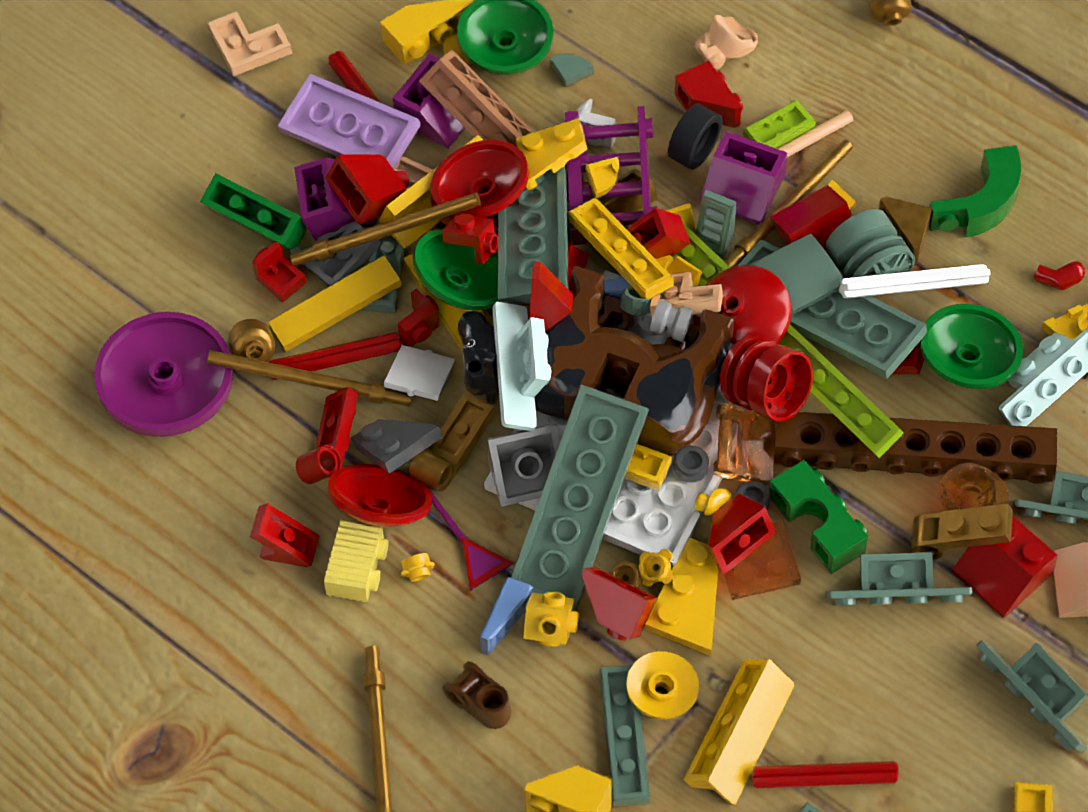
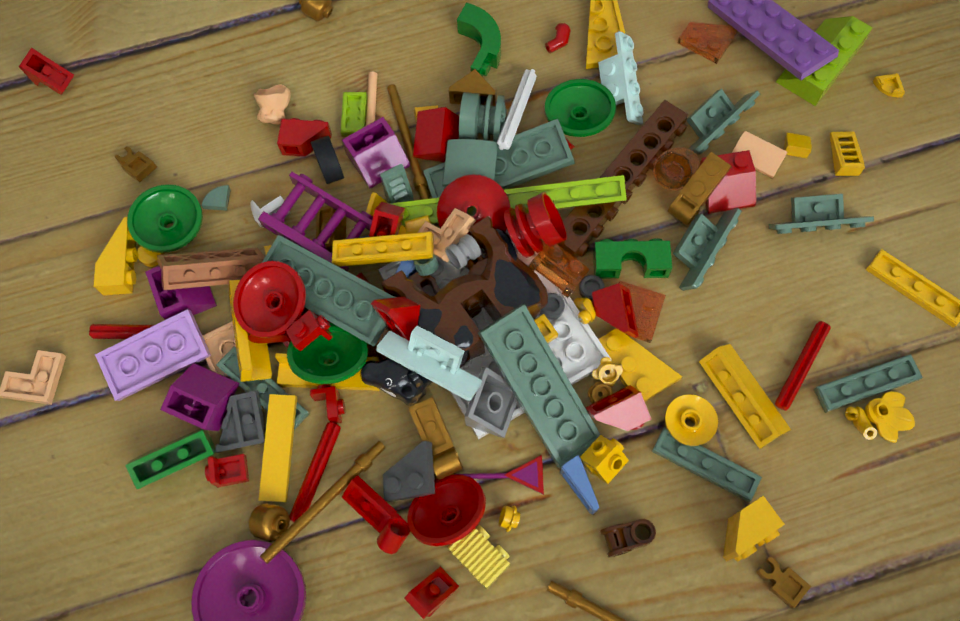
camera: 55 degrees left, 10 degrees up
(325, 248) = (236, 428): pearl gold bar -> none
(366, 184) = (213, 372): red torso -> none
(419, 372) = (368, 426): white piece -> none
(551, 148) = (278, 241): yellow wing -> none
(603, 175) = (319, 227): yellow tile -> none

